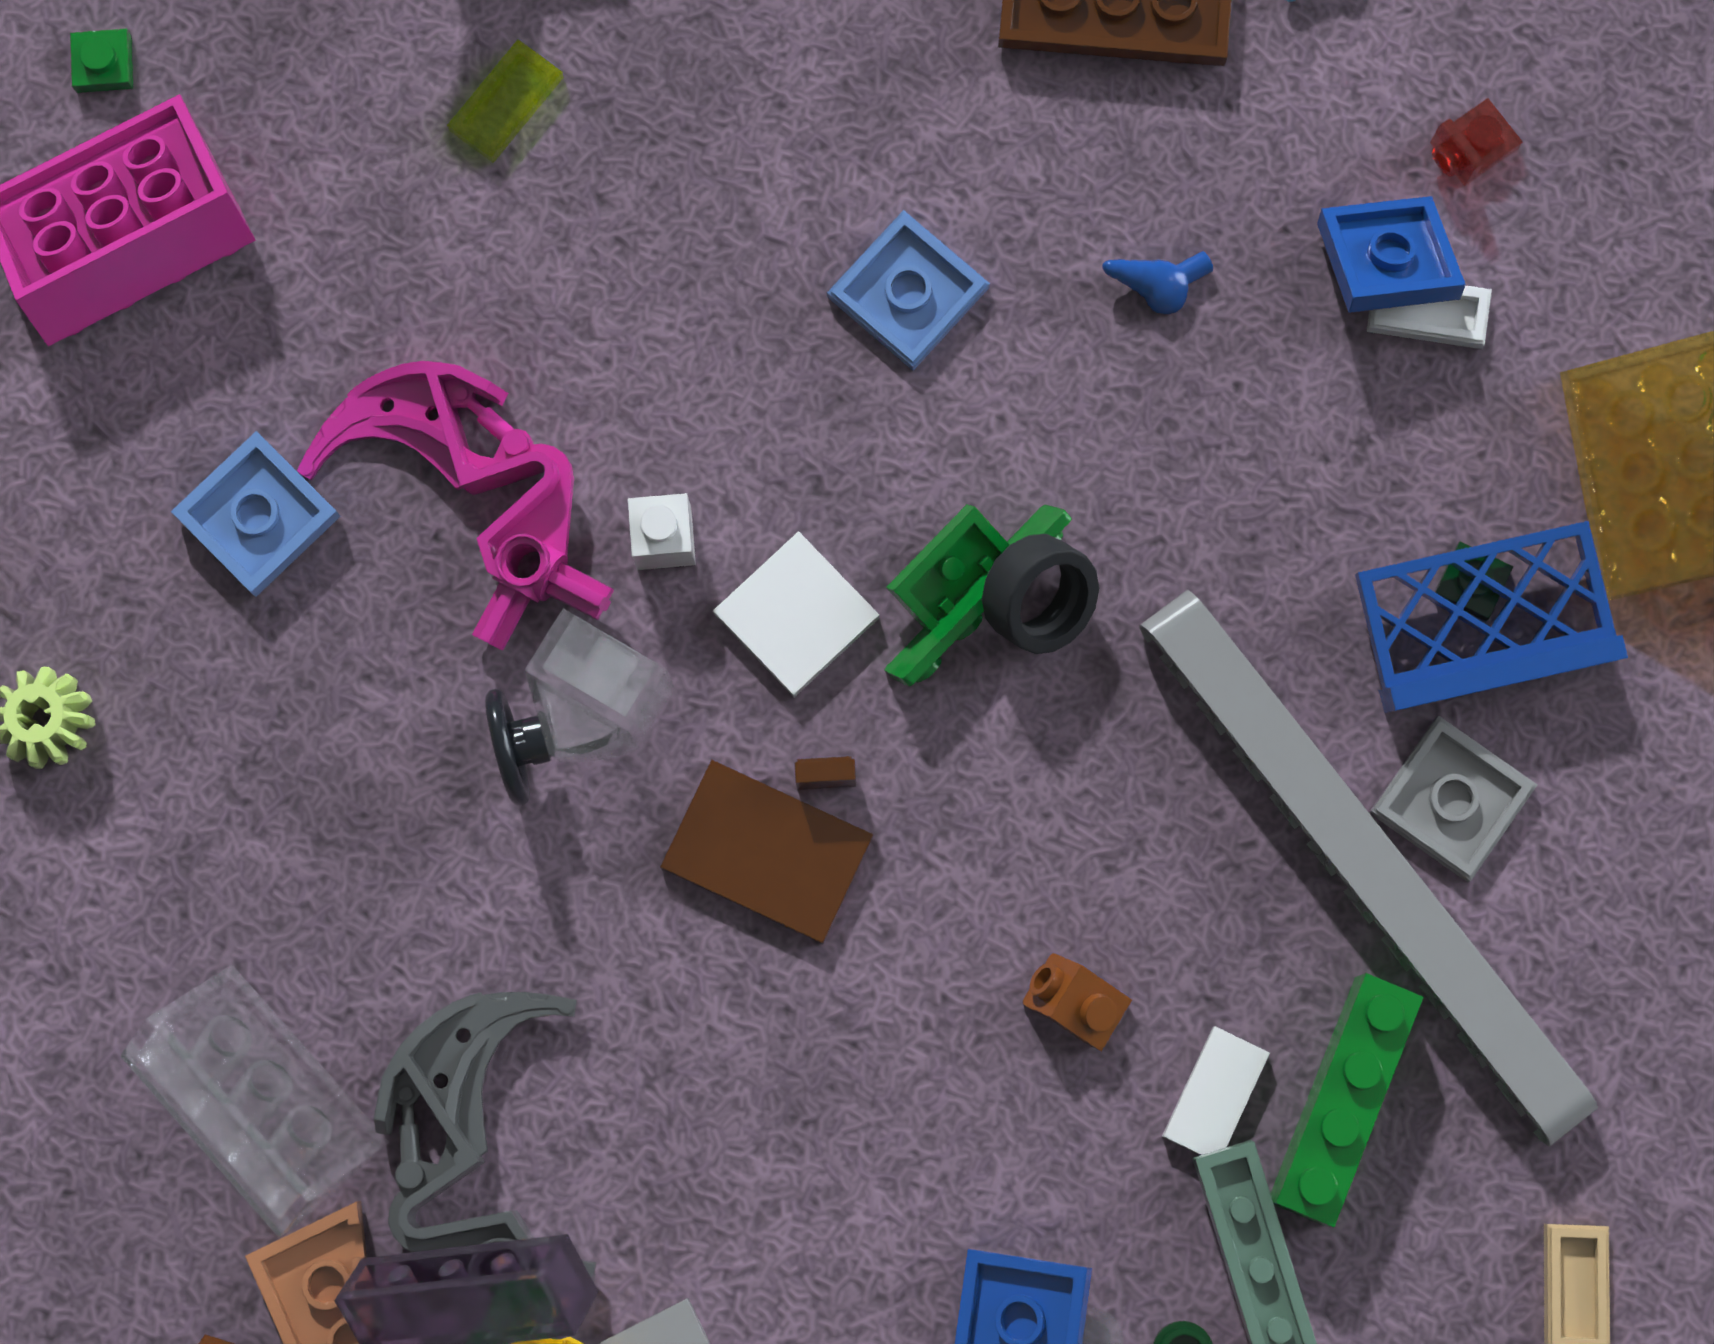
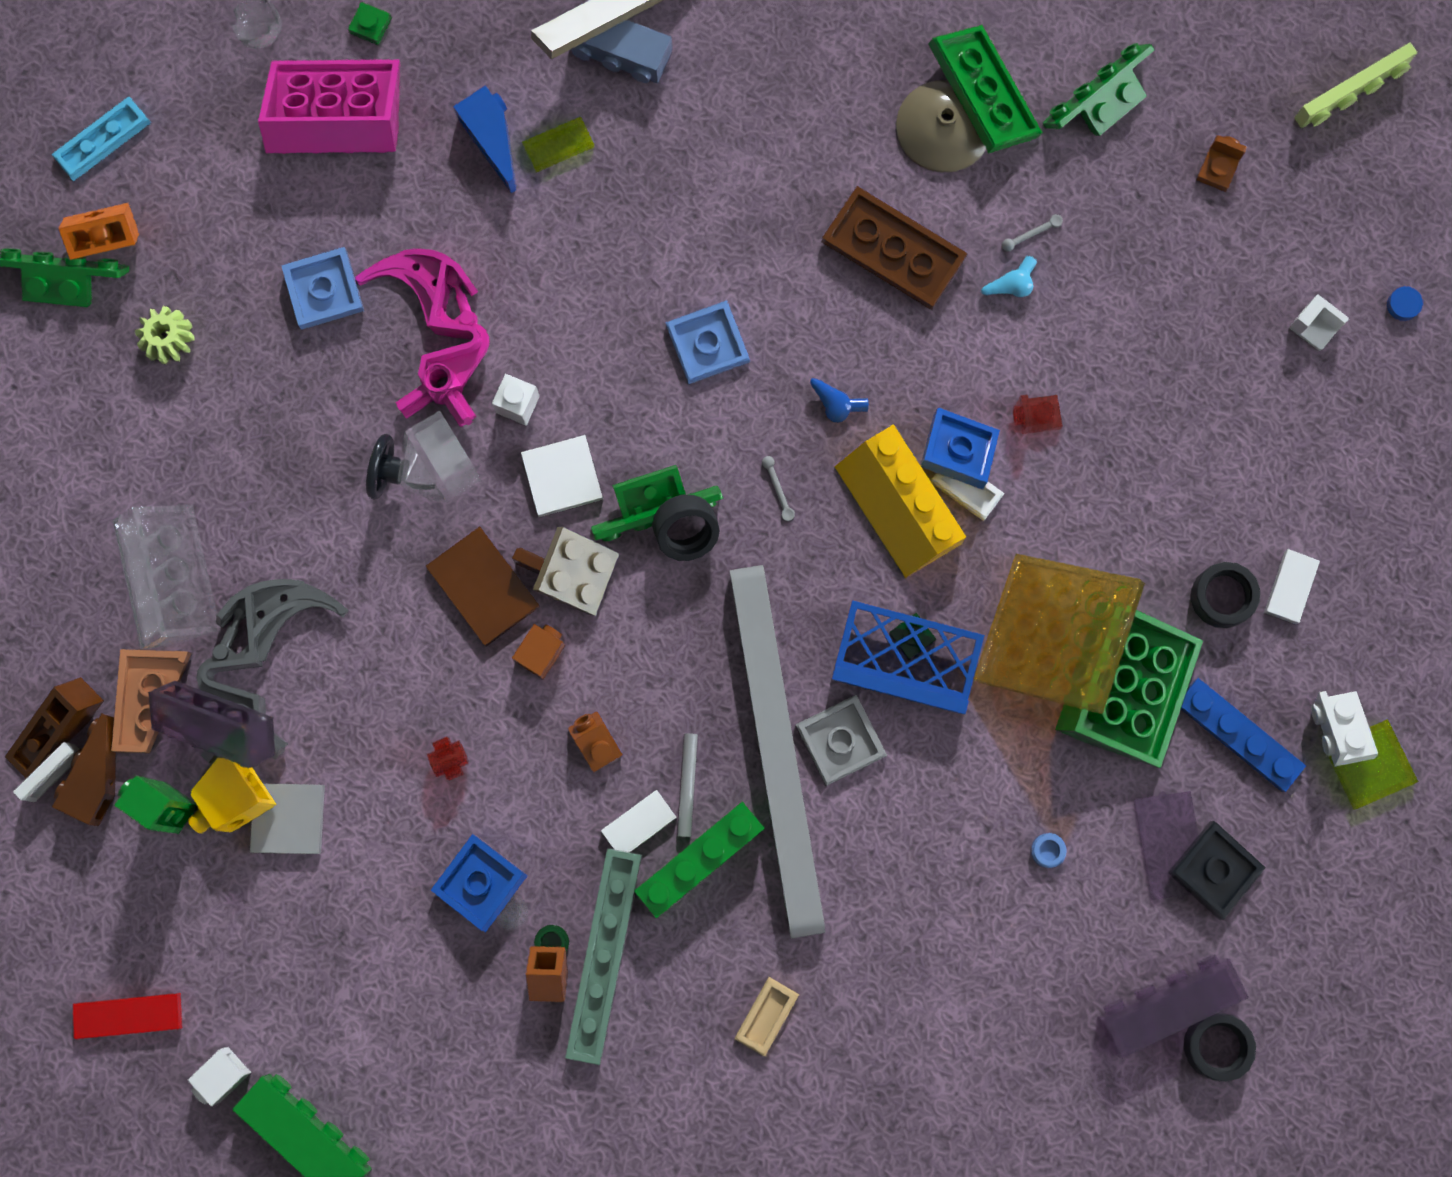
camera: 25 degrees right, 0 degrees up
(375, 124) = (487, 126): none -> blue slope
(864, 1151) = (448, 758): none -> clear red gear
(904, 751) = (576, 571): none -> plate
(914, 904) = (539, 650): none -> dark orange brick
(1177, 492) = (787, 513): none -> light grey hinge
(1256, 994) = (687, 785): none -> light grey bar
(1343, 383) = (900, 501): none -> yellow slope

